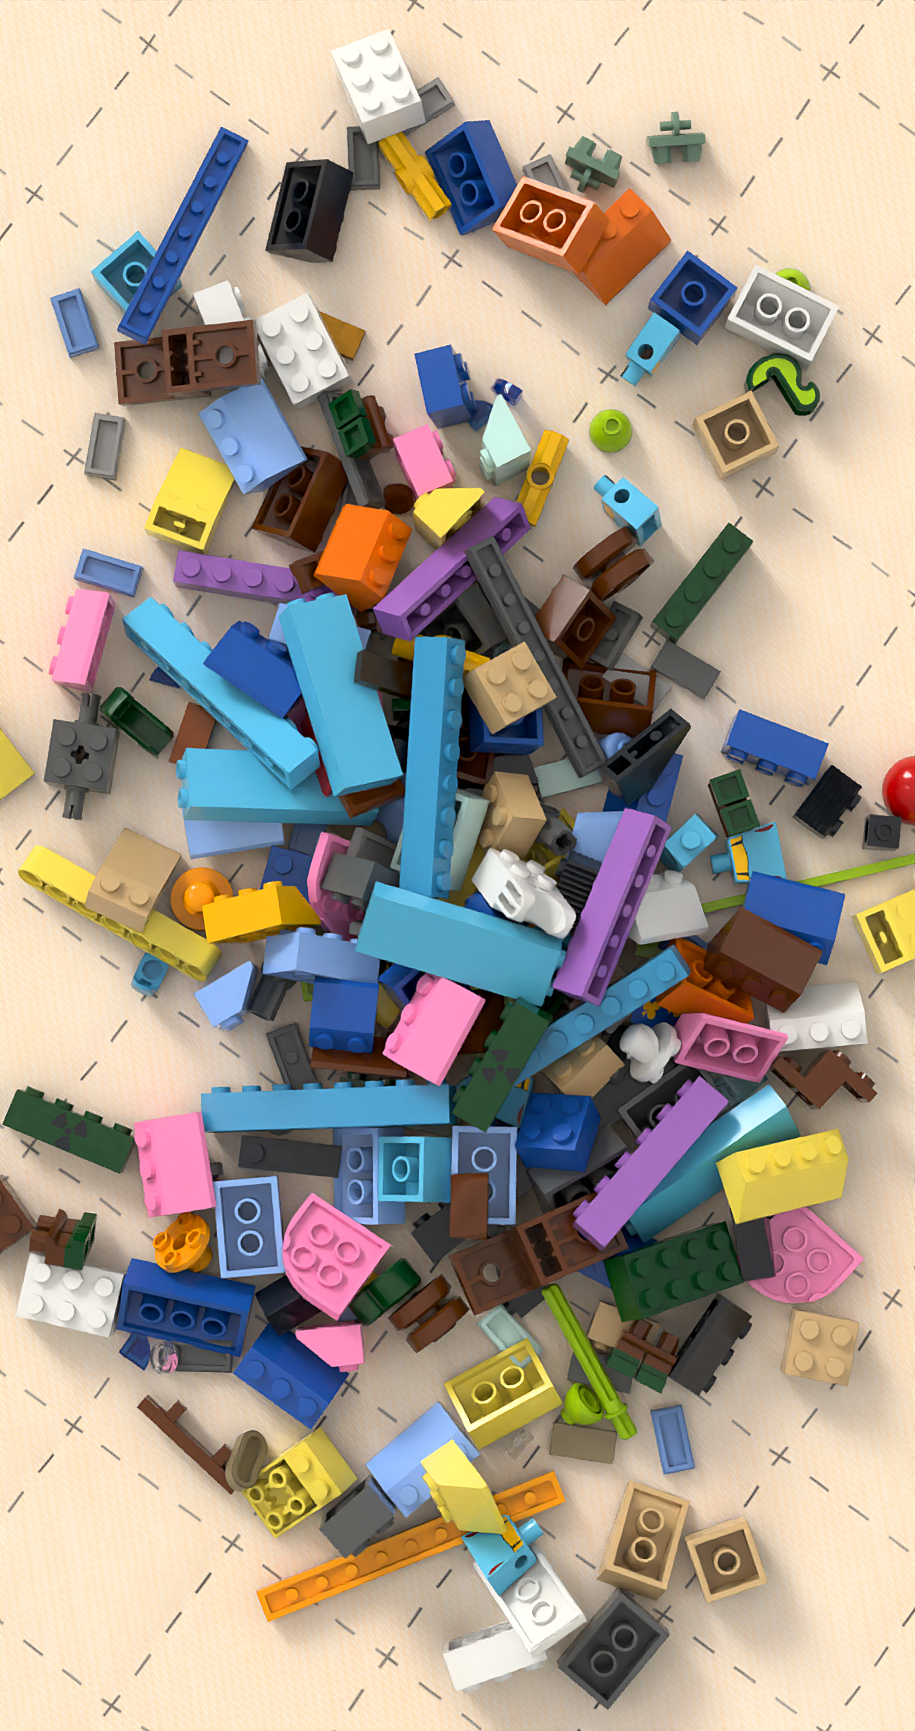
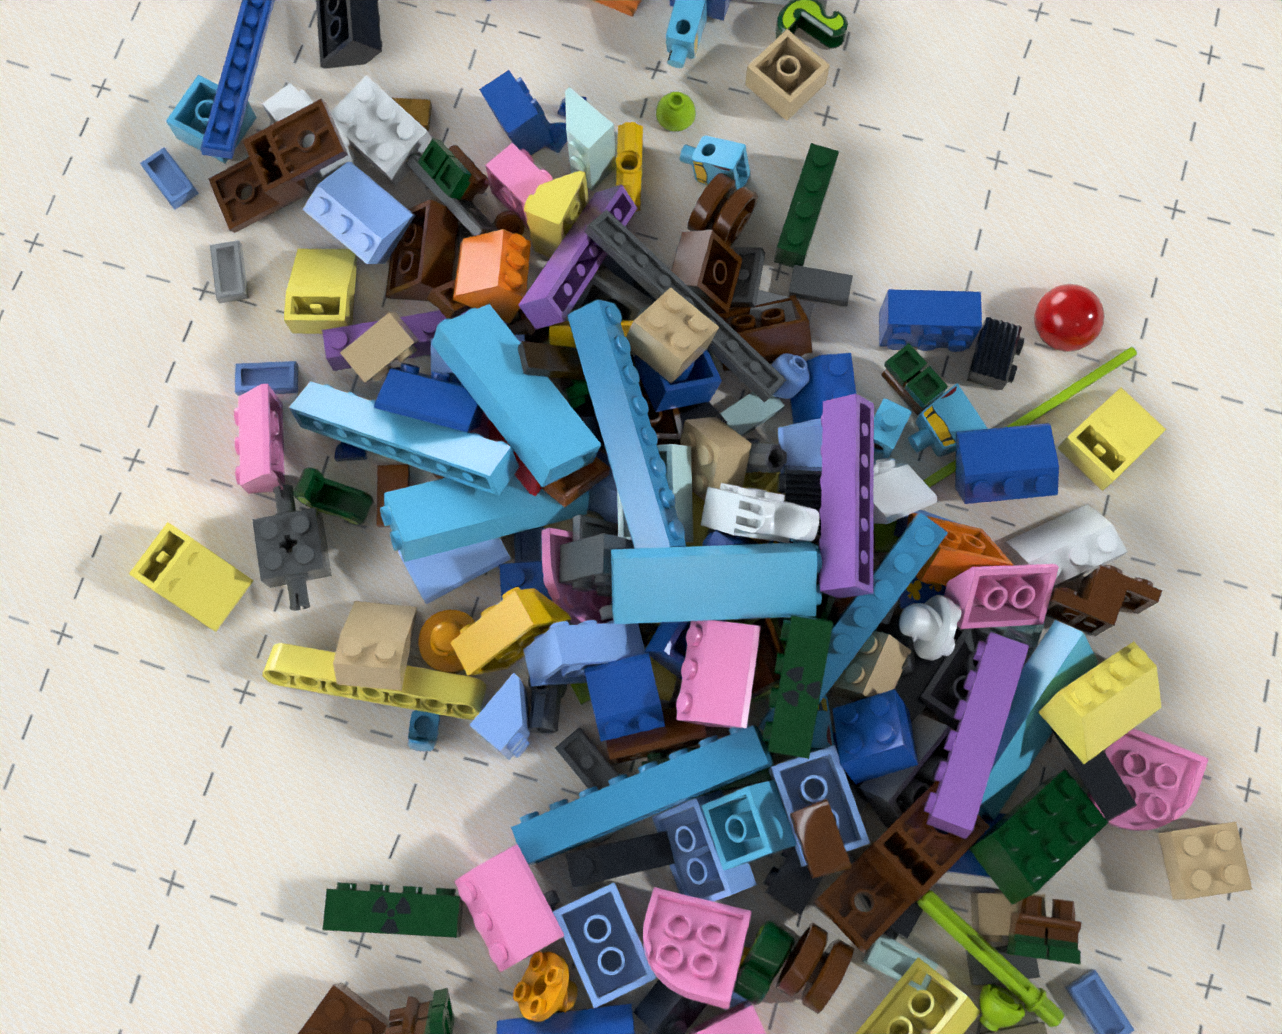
camera: 15 degrees left, 10 degrees down
(229, 597) = (379, 347): none -> tan brick
(644, 758) = (818, 363): black slope -> none
(710, 1345) = (1100, 895): black slope -> none
(761, 959) = (999, 507): reddish brown slope -> none
(881, 832) = (1055, 362): black brick -> none

